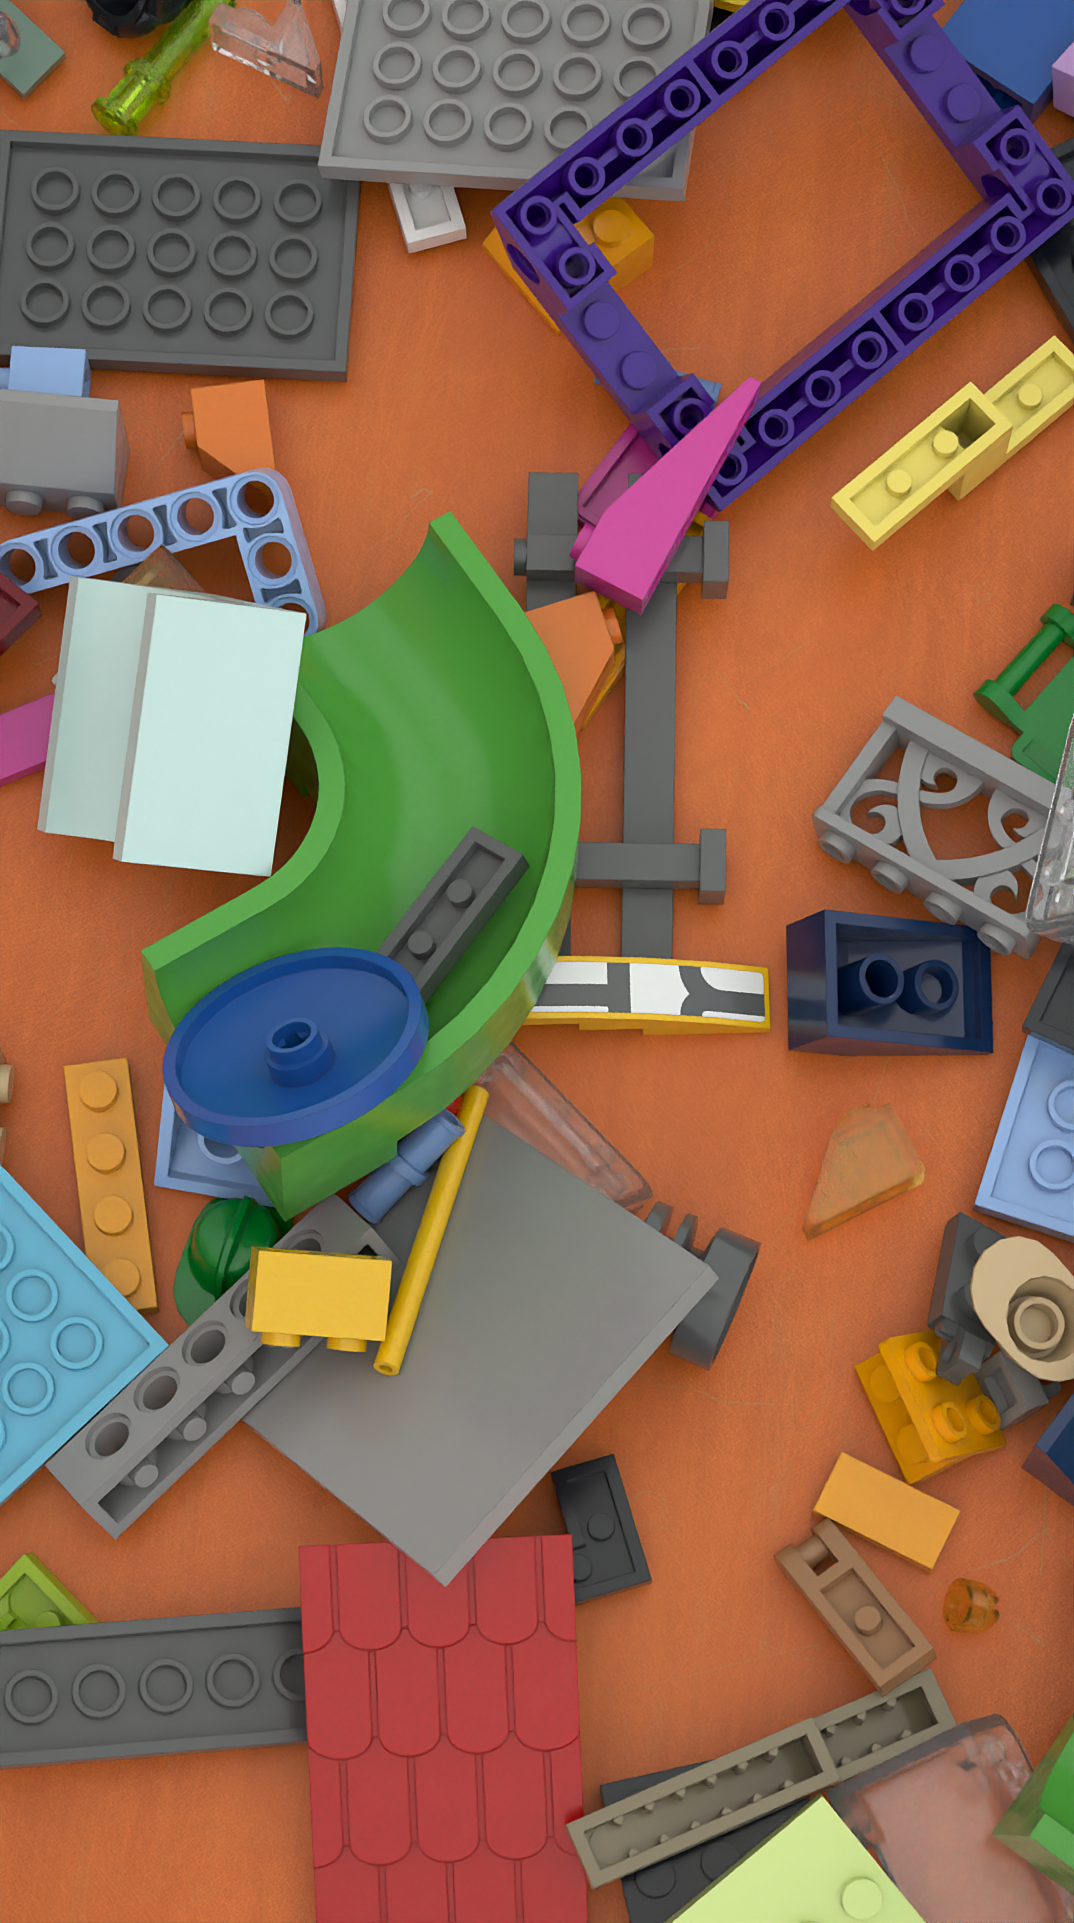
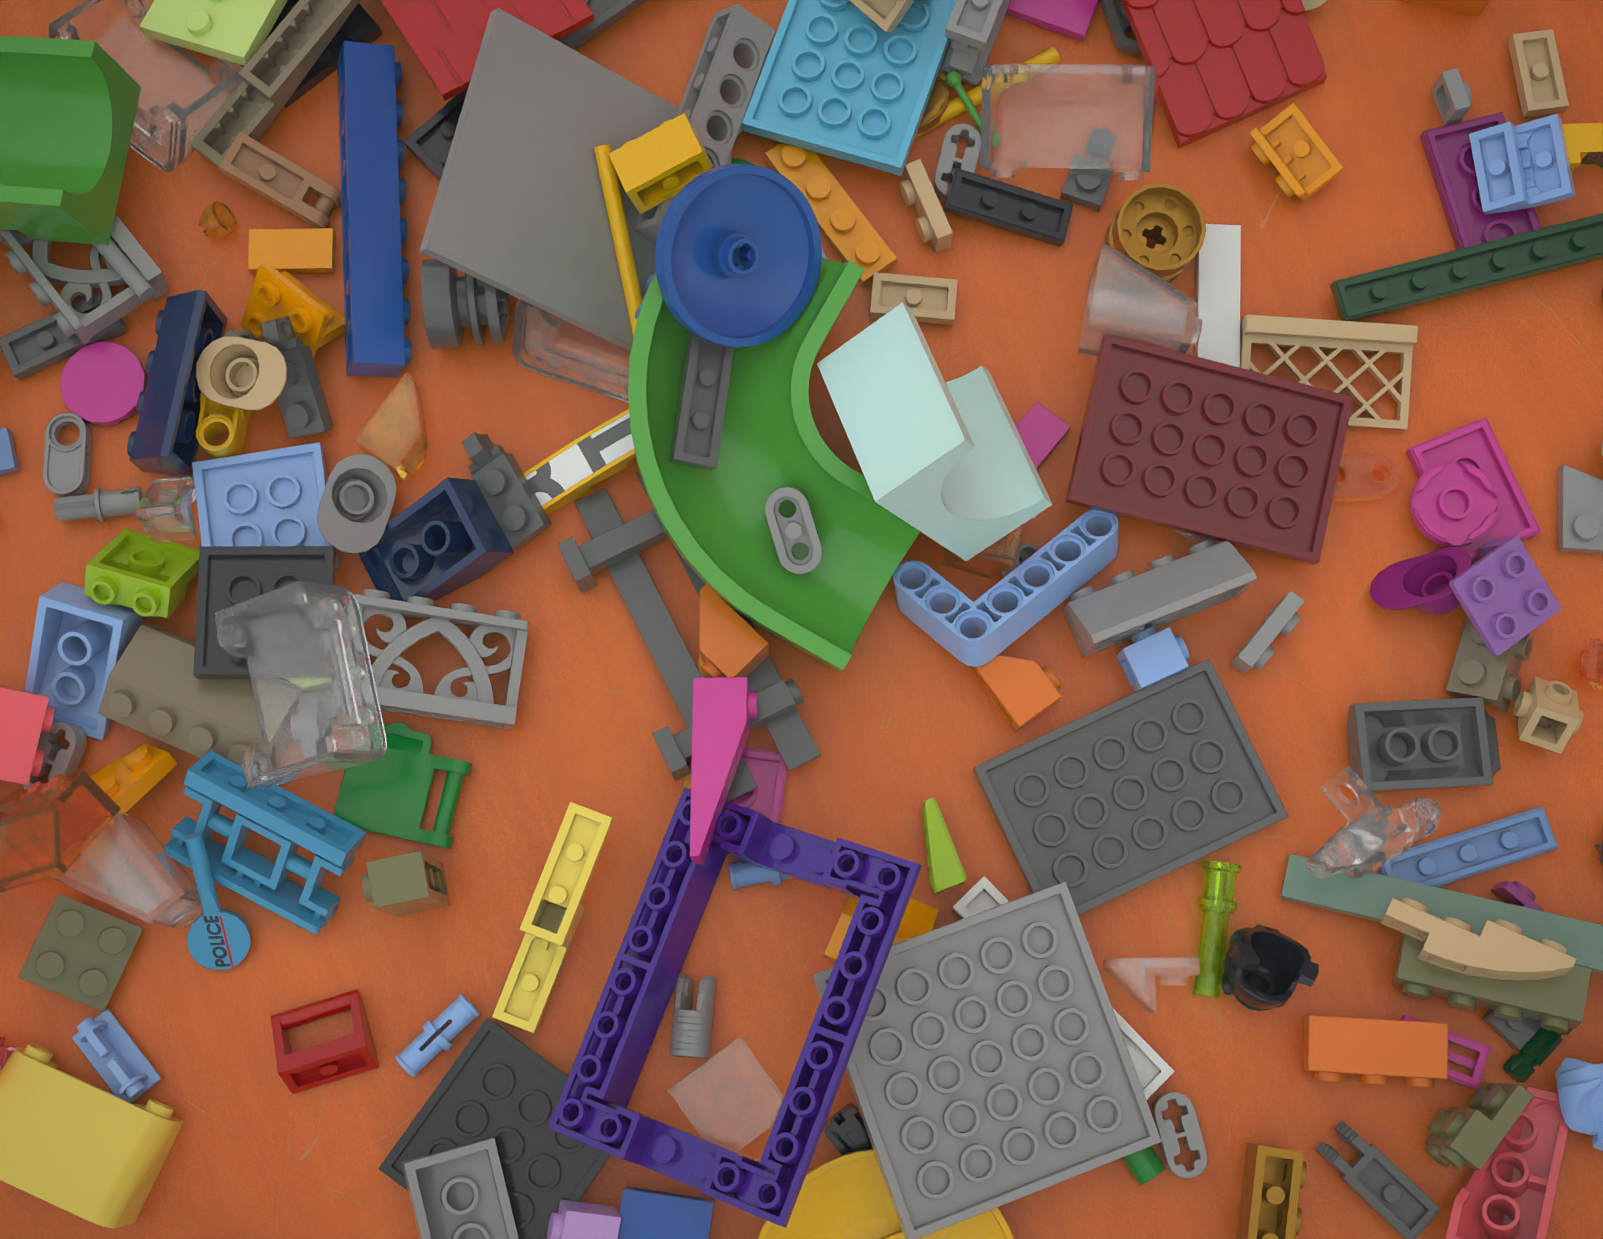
camera: 150 degrees right, 5 degrees up
(73, 999) = (928, 297): none -> tan plate
(410, 732) = (793, 529): none -> light grey plate
(449, 282) = (942, 859): none -> lime slope
(744, 1502) = (371, 210): none -> blue brick
(755, 1012) = (506, 490): none -> dark grey hinge
(853, 157) = (729, 1097): none -> clear tile
(854, 256) = (691, 1028): none -> light grey hinge
(965, 1082) = (356, 503): none -> light grey piece

